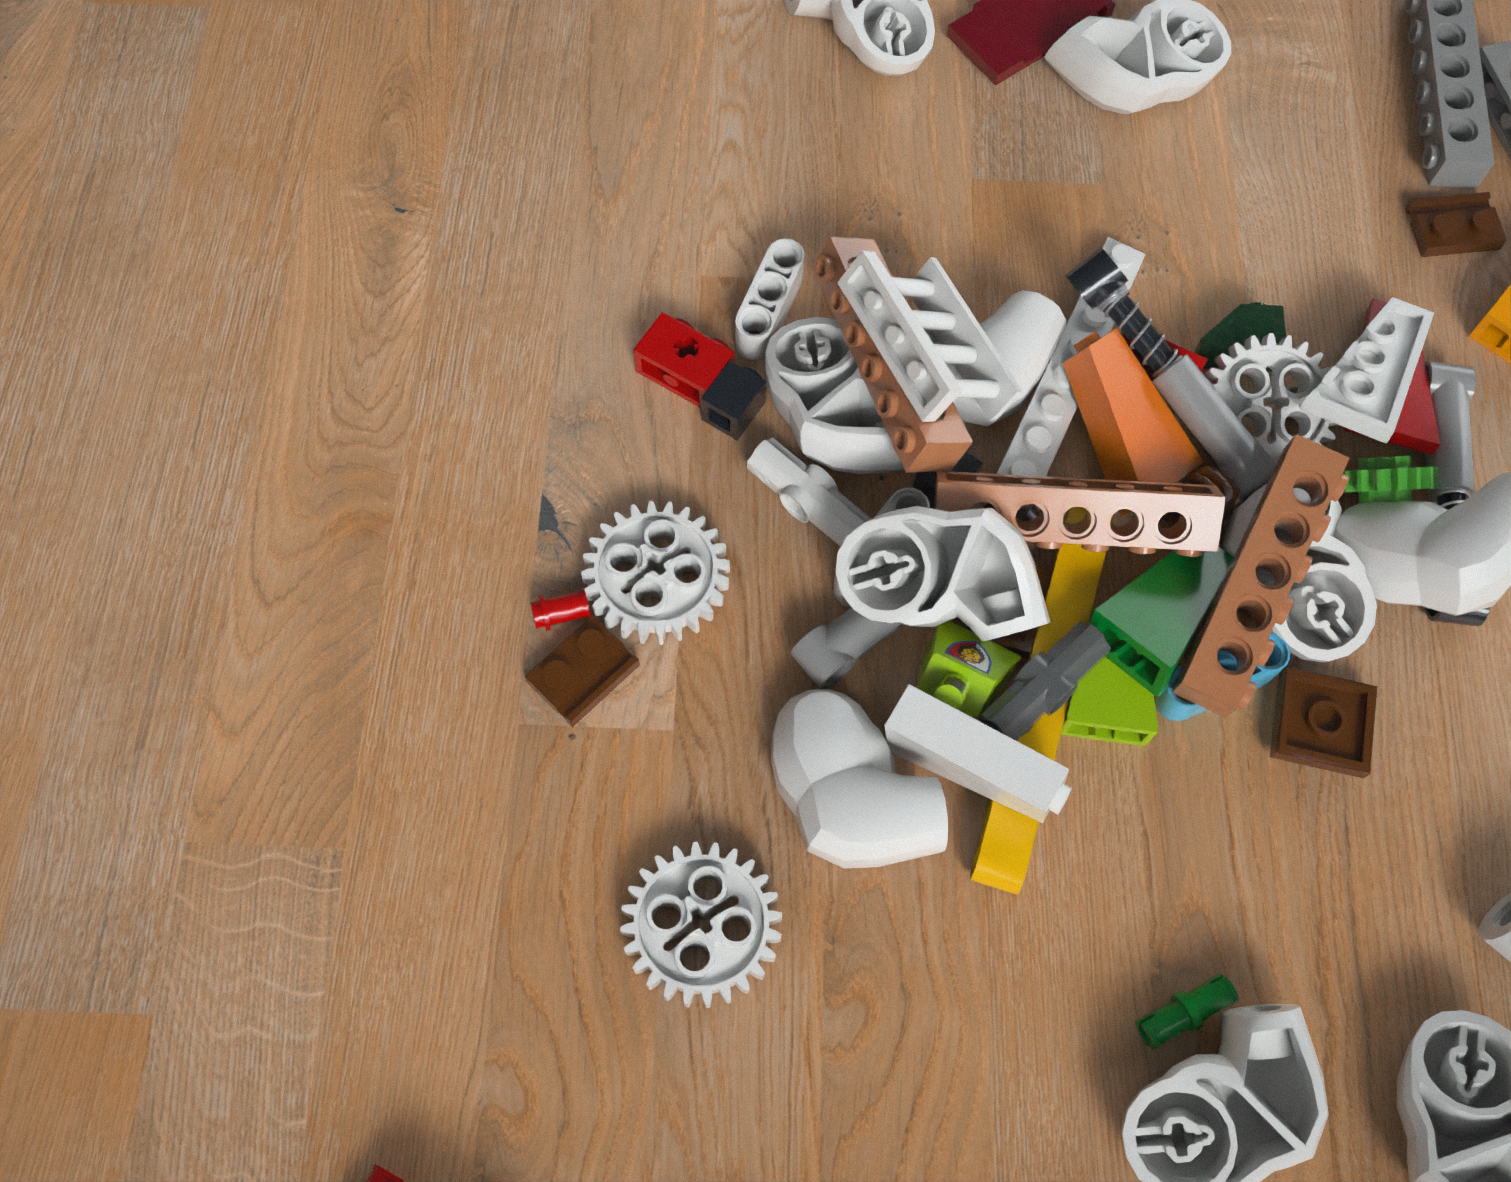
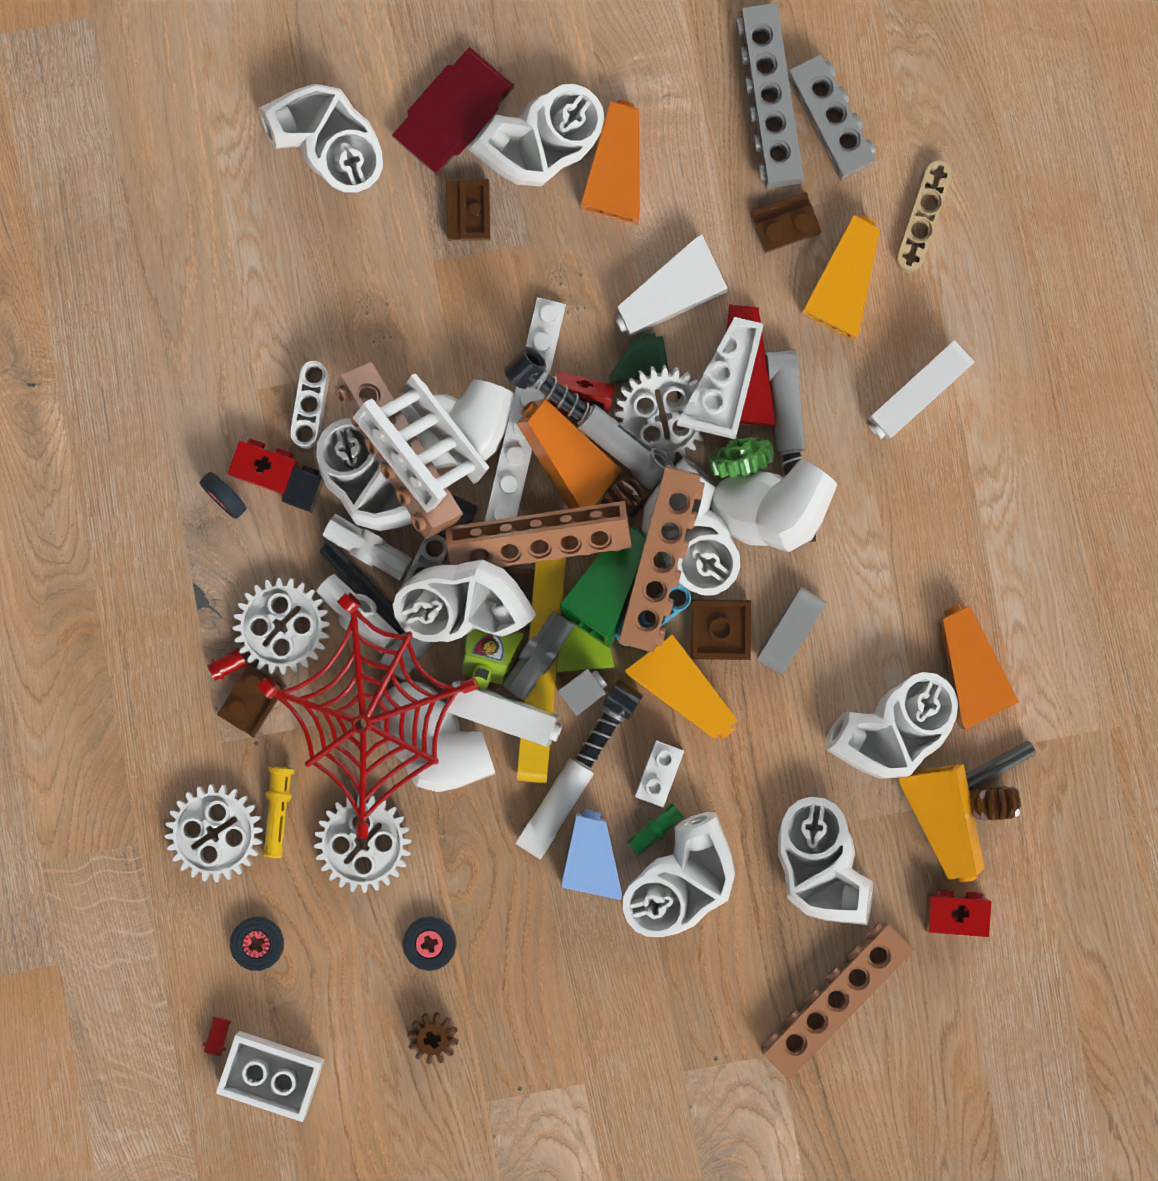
camera: 10 degrees left, 20 degrees up
(462, 1040) = (260, 928): none -> black bush
(481, 894) = (228, 855): none -> white gear
(584, 820) = (278, 797): none -> yellow pin
(619, 377) = (223, 495): none -> black bush
(619, 653) = (271, 689): none -> red animal
(756, 1143) = (436, 929): none -> black bush
(774, 576) = (333, 589): none -> white piece
(791, 549) = (360, 583): none -> black axle
(1031, 125) = (468, 210): none -> reddish brown plate
(1067, 891) = (577, 772): none -> piece
(1083, 1031) = (590, 858): none -> light blue slope
(1117, 740) = (583, 691): none -> light grey brick
(1206, 918) = (659, 773): none -> white brick
(1236, 119) = (615, 171): none -> orange slope
(1259, 795) = (682, 686): none -> light orange slope
(1299, 264) = (674, 289): none -> white slope
(1435, 746) = (791, 631): none -> light grey beam

